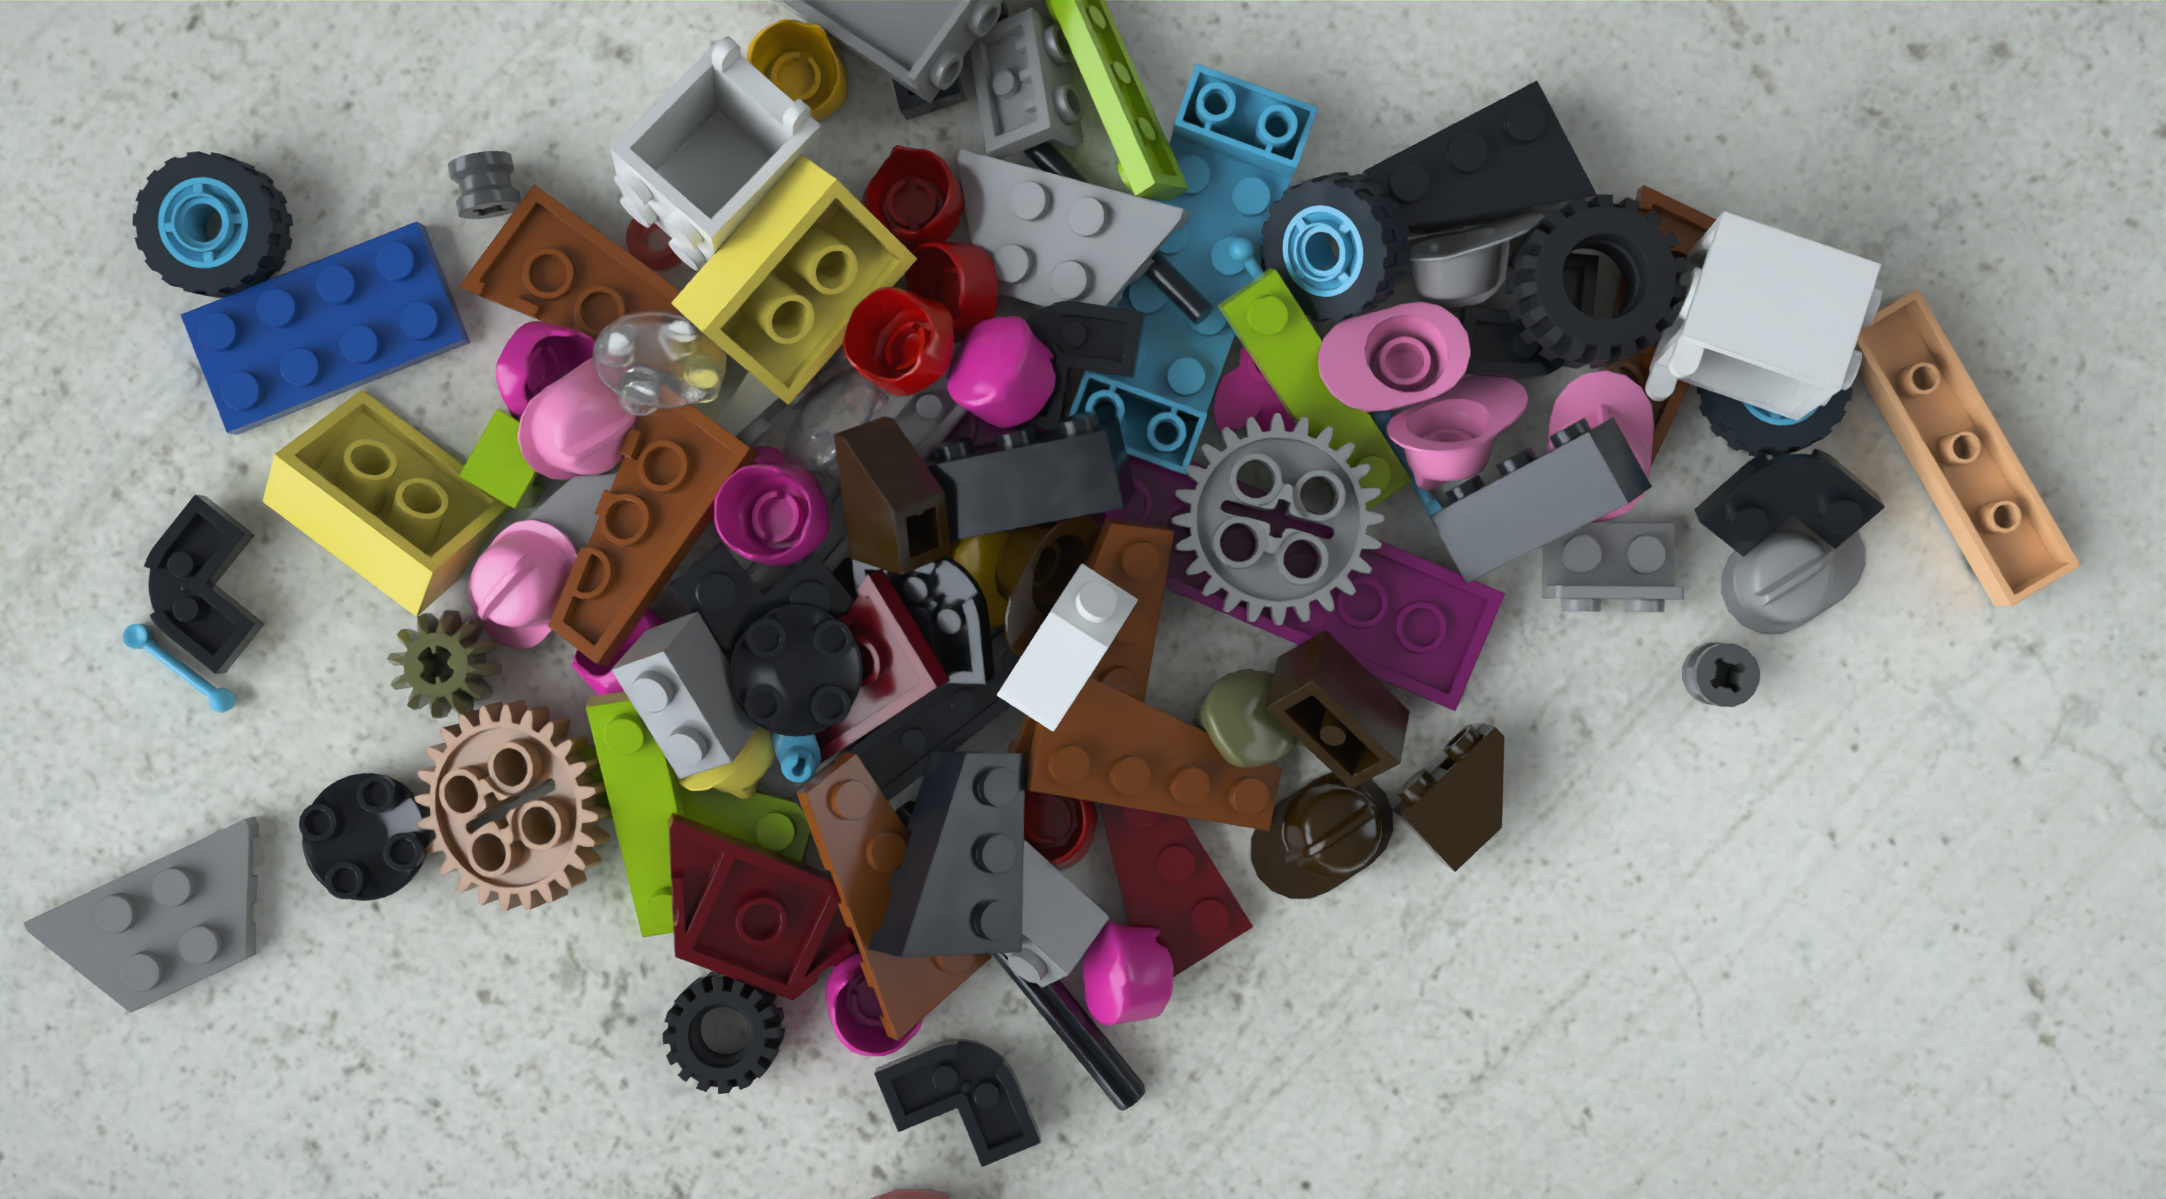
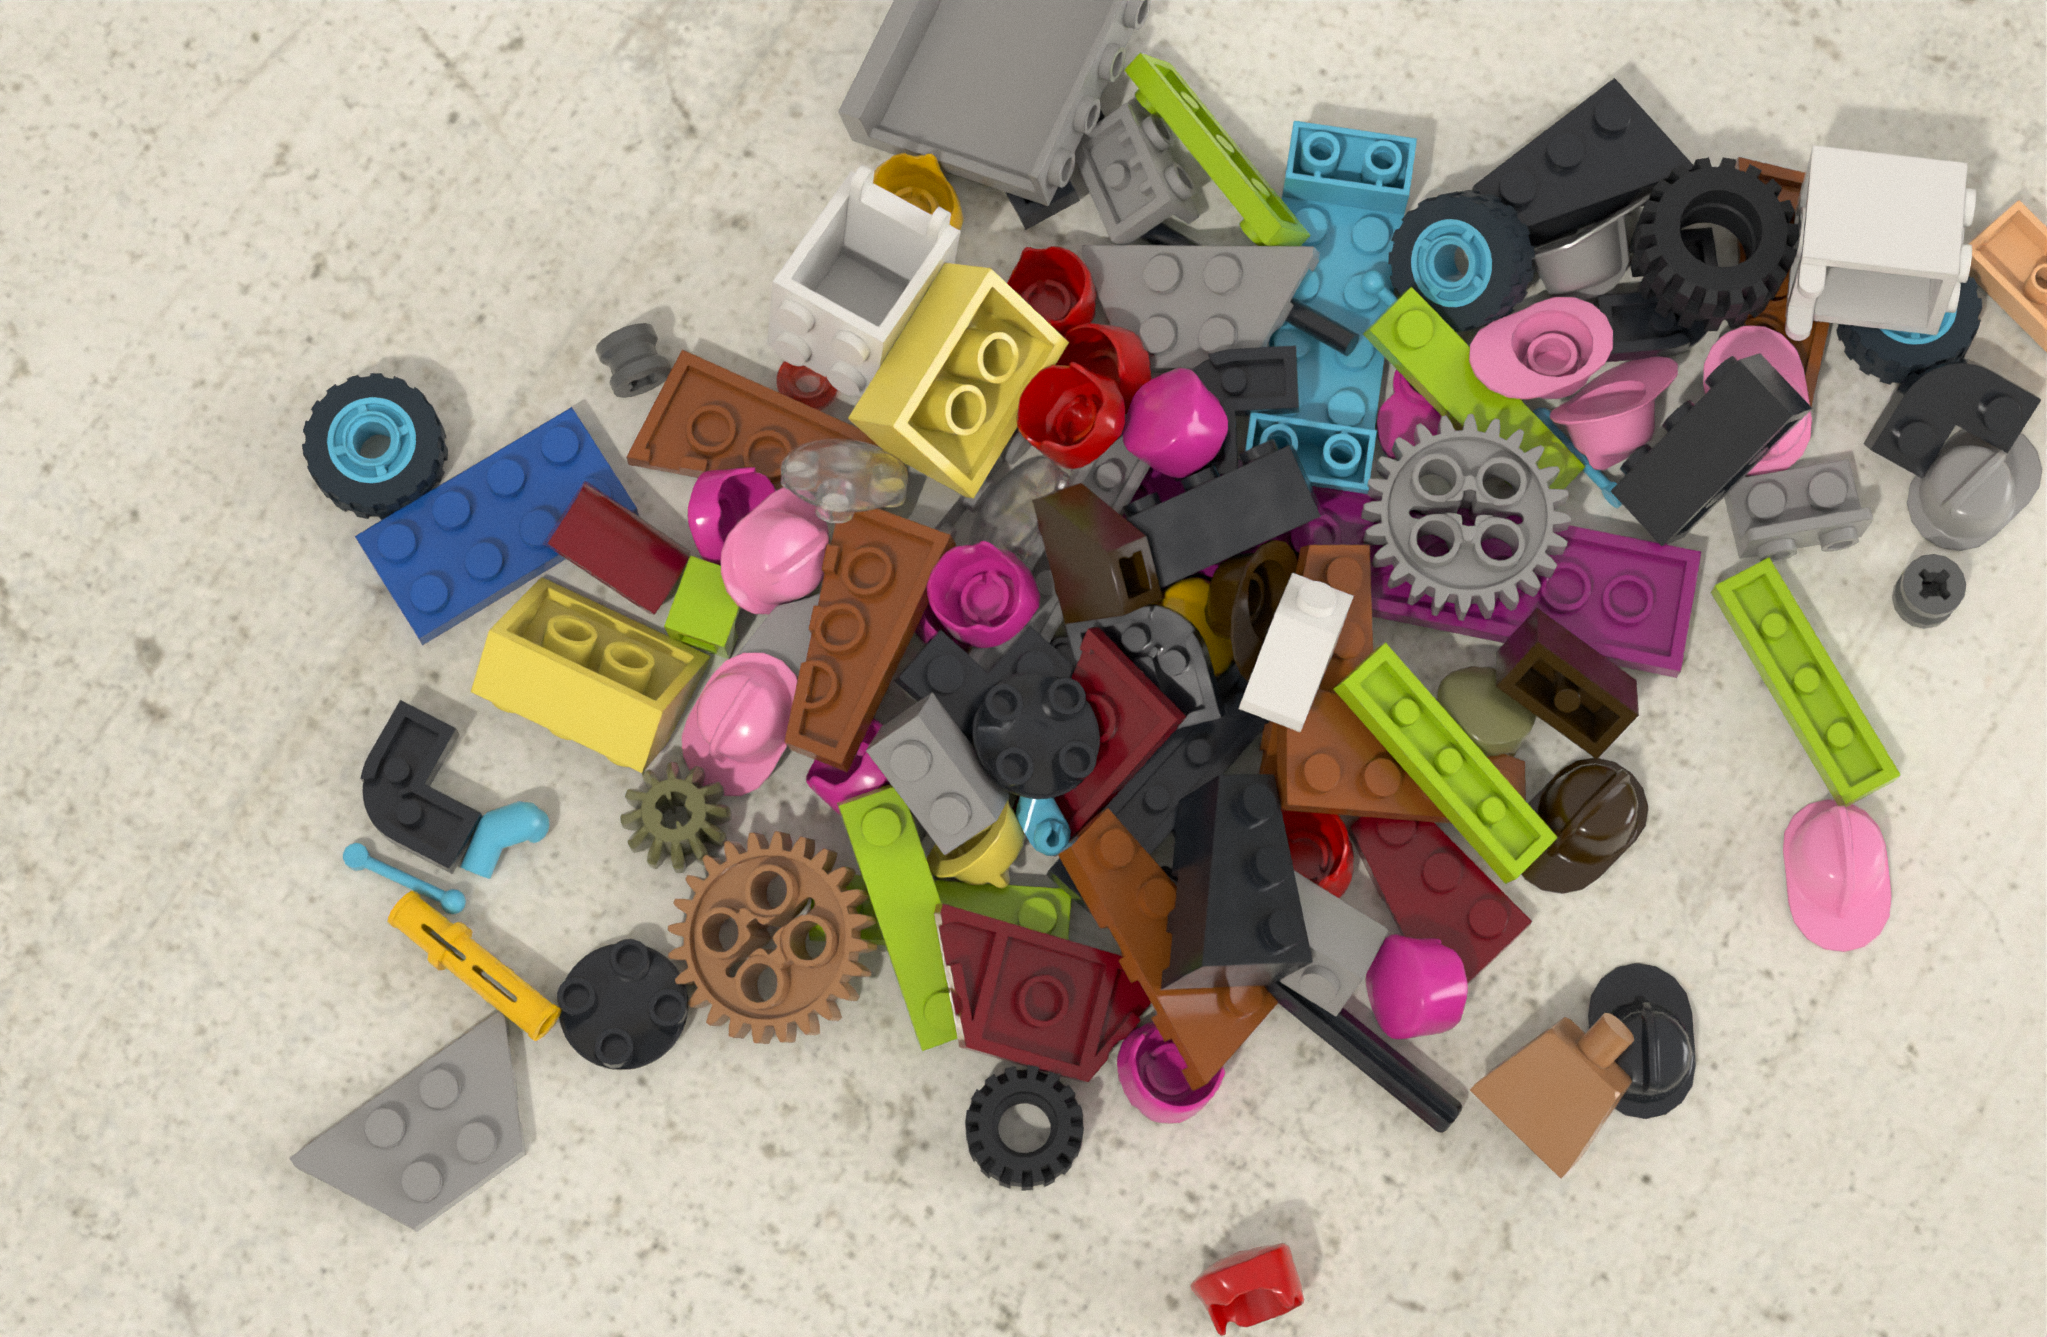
camera: 15 degrees left, 15 degrees down
(214, 755) = (419, 919): none -> yellow pin
(278, 641) = (502, 829): none -> medium azure arm
(429, 383) = (618, 548): none -> dark red brick
(966, 1078) = (1281, 1129): black plate -> none
(1197, 772) = (1445, 763): none -> lime plate
(1237, 1103) = (1560, 1088): none -> medium nougat torso
(1332, 1054) = (1662, 1027): none -> black piece
(1461, 799) = (1708, 757): dark brown slope -> none
(1559, 931) = (1837, 875): none -> bright pink piece
(1575, 743) = (1805, 683): none -> lime plate

